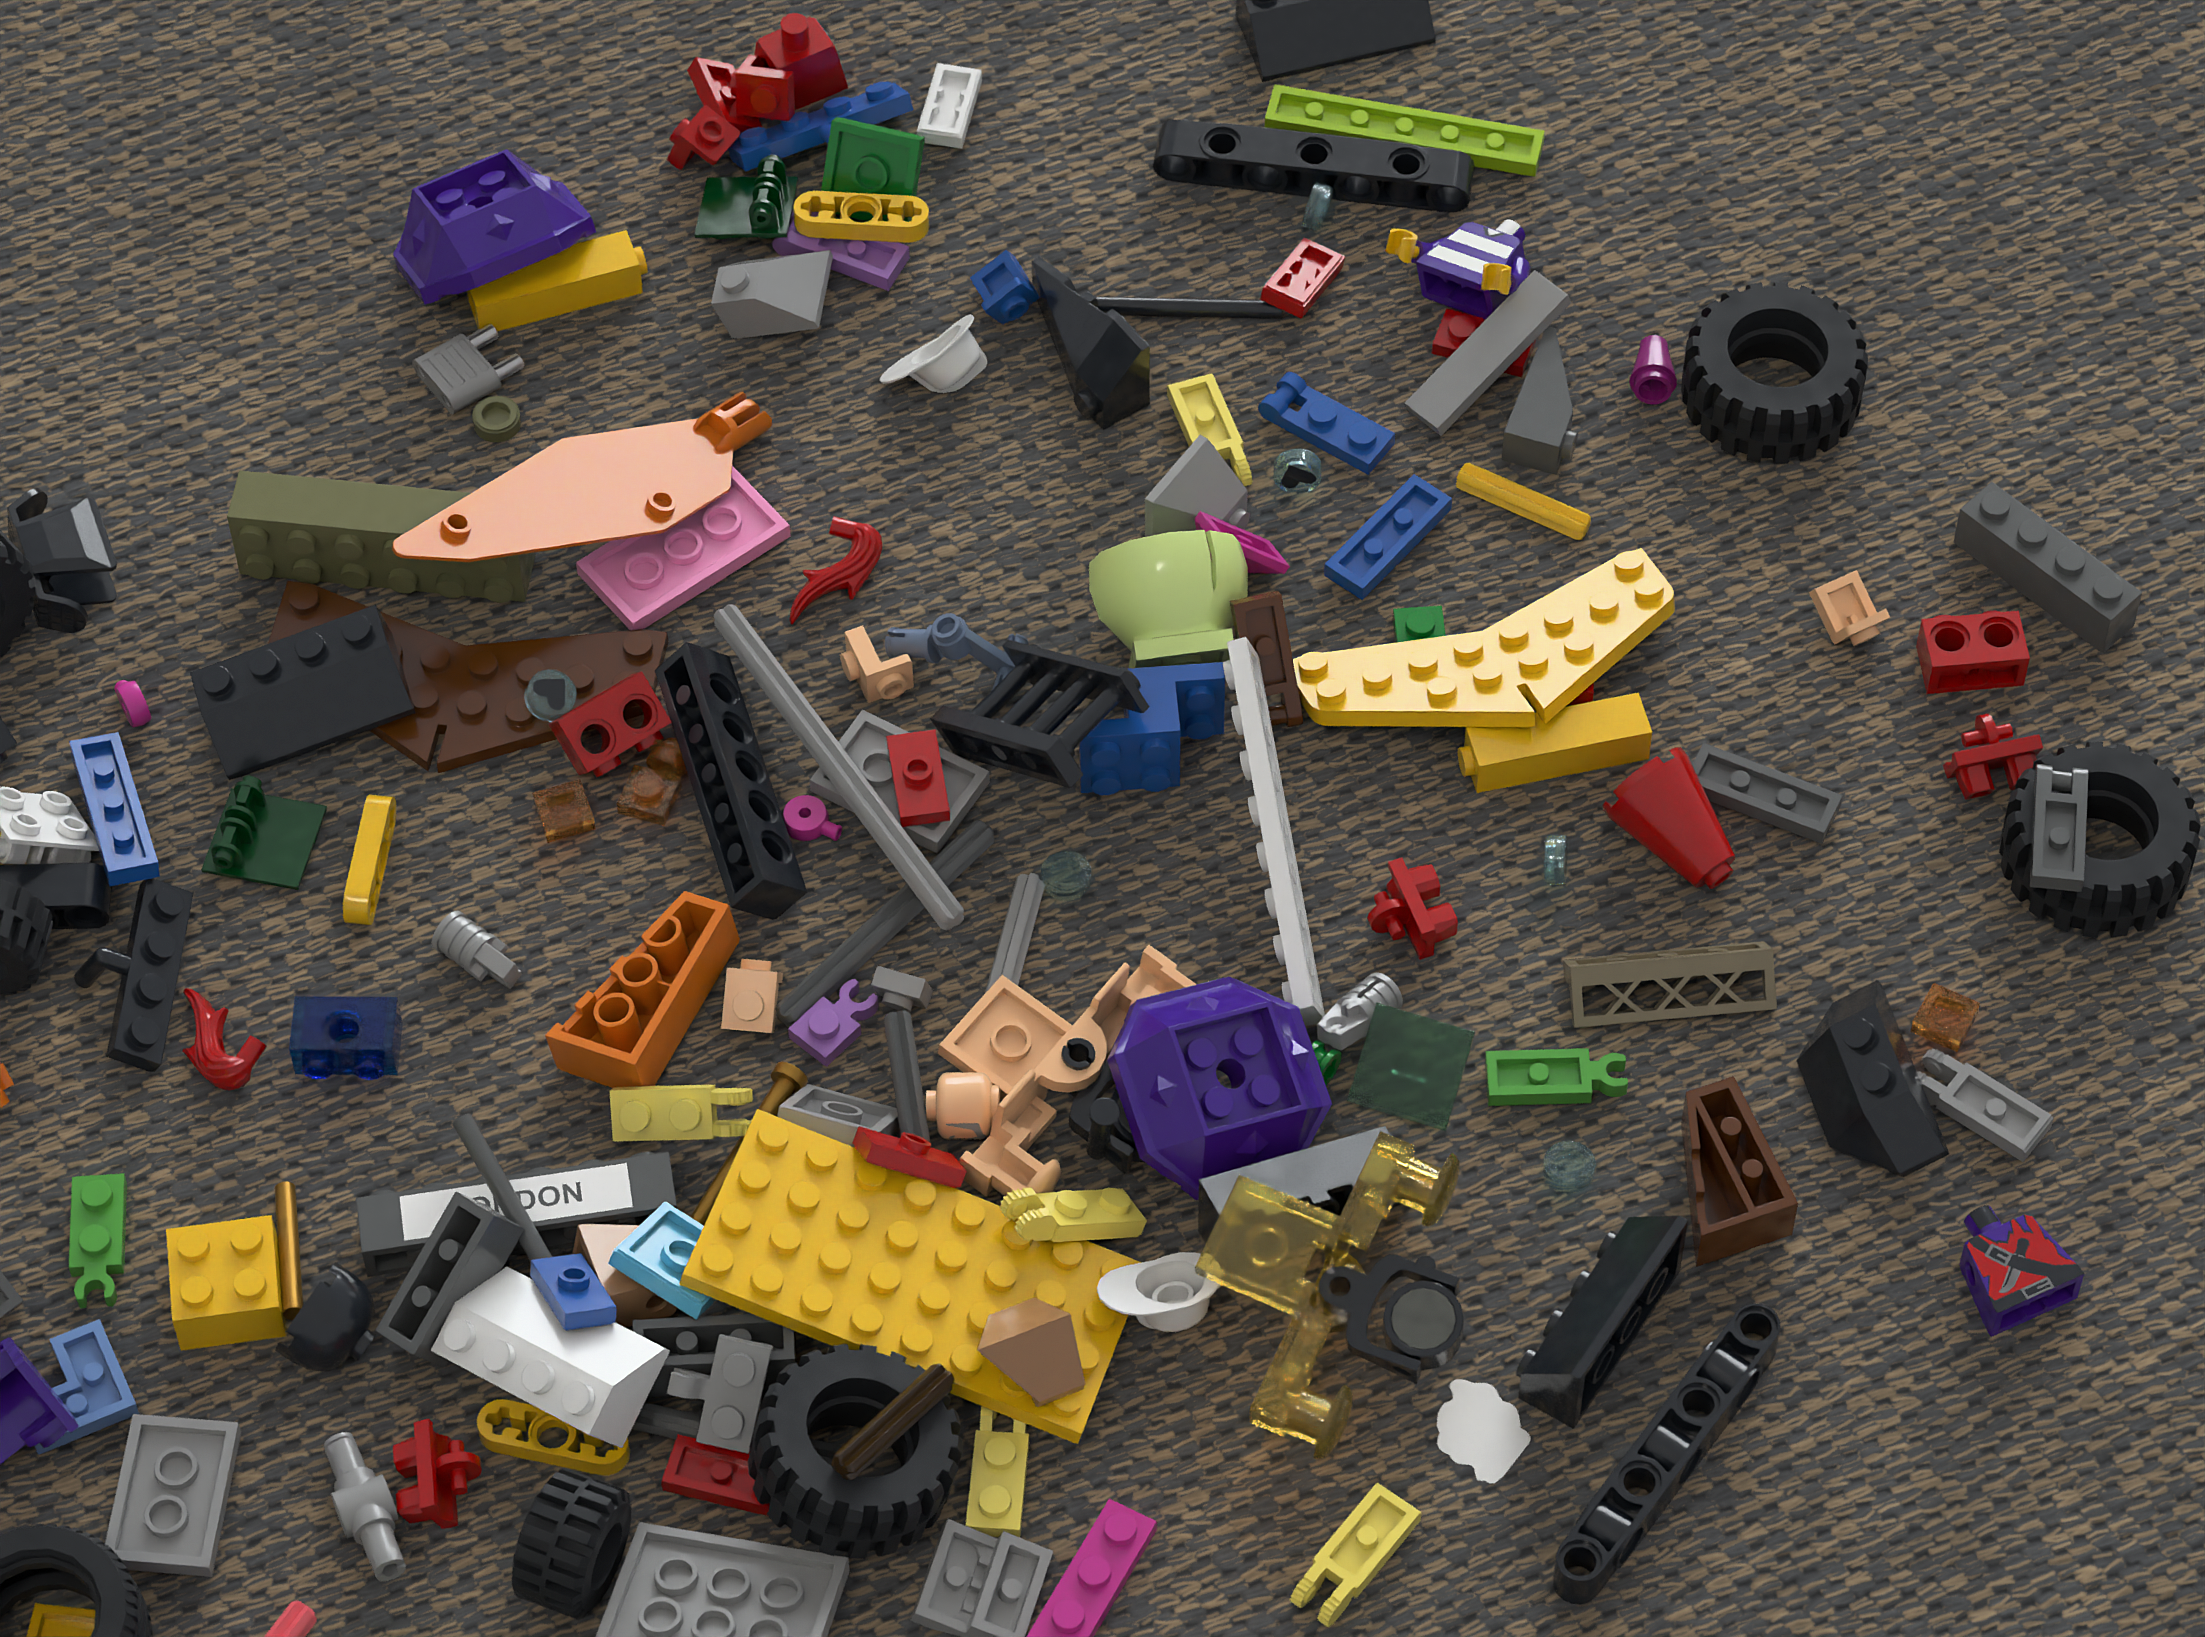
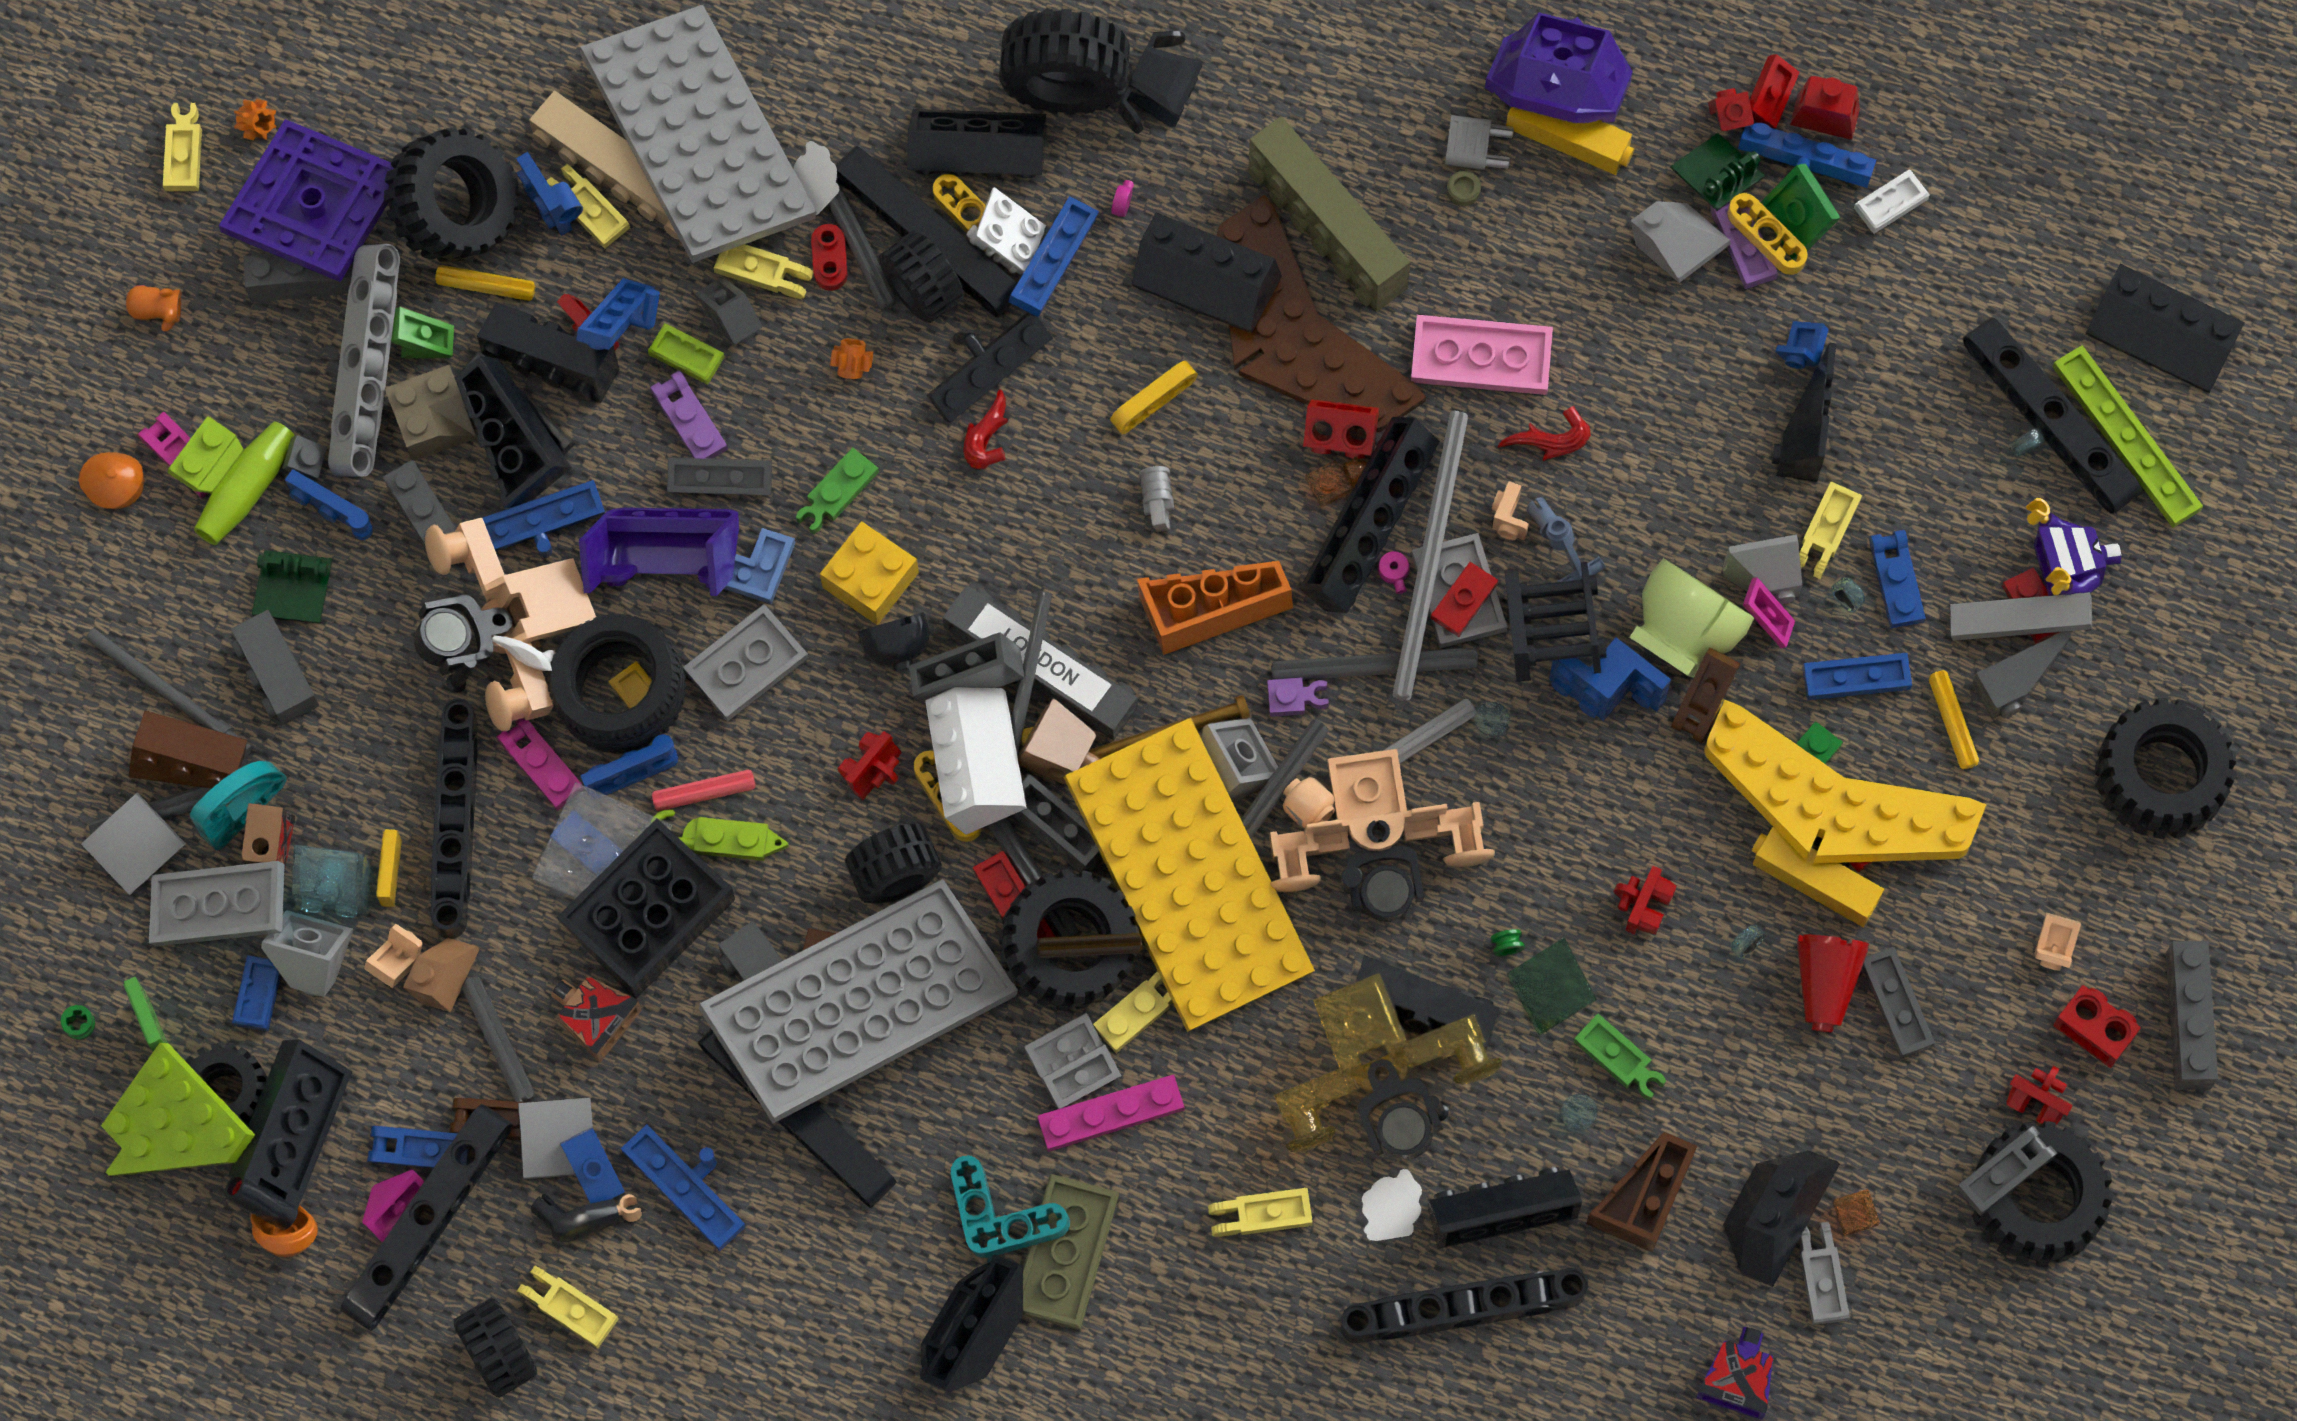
camera: 45 degrees right, 15 degrees up
(263, 837) = (1116, 337): dark green hinge -> none
(288, 1249) = (917, 581): pearl gold bar -> none
(326, 1020) = (1043, 470): clear blue brick -> none
(364, 1506) = (826, 751): light grey pin -> none
(550, 695) = (1327, 383): clear light blue tile -> none
(563, 811) = (1275, 455): clear orange plate -> none
(573, 1291) = (1013, 733): blue plate -> none
(594, 489) = (1455, 285): wing -> none
(658, 1255) = (1074, 749): medium azure tile -> none
(675, 1112) = (1166, 678): light yellow hinge -> none
(729, 1392) = (1039, 852): light grey plate -> none
(751, 997) = (1266, 645): light nougat bracket -> none
(763, 91) = (1788, 109): red bracket -> none
(901, 990) = (1342, 710): light grey plate -> none
(910, 1156) = (1243, 809): red plate -> none
(944, 362) = (1725, 359): white piece -> none
(1035, 1349) = (1198, 965): medium nougat slope -> none
(1073, 1214) = (1299, 912): light yellow hinge -> none
(1159, 1292) = (1296, 988): white piece -> none
(1170, 1089) = (1427, 872): dark purple piece -> none
(1189, 307) = (1896, 441): black bar -> none
(1270, 813) = (1614, 788): white plate -> none
(1302, 278) = (1973, 479): plate -> none
(1353, 1012) = (1547, 931): light grey hinge -> none
(1653, 371) = (2105, 706): magenta cone -> none
(1666, 965) = (1741, 1051): dark tan fence -> none

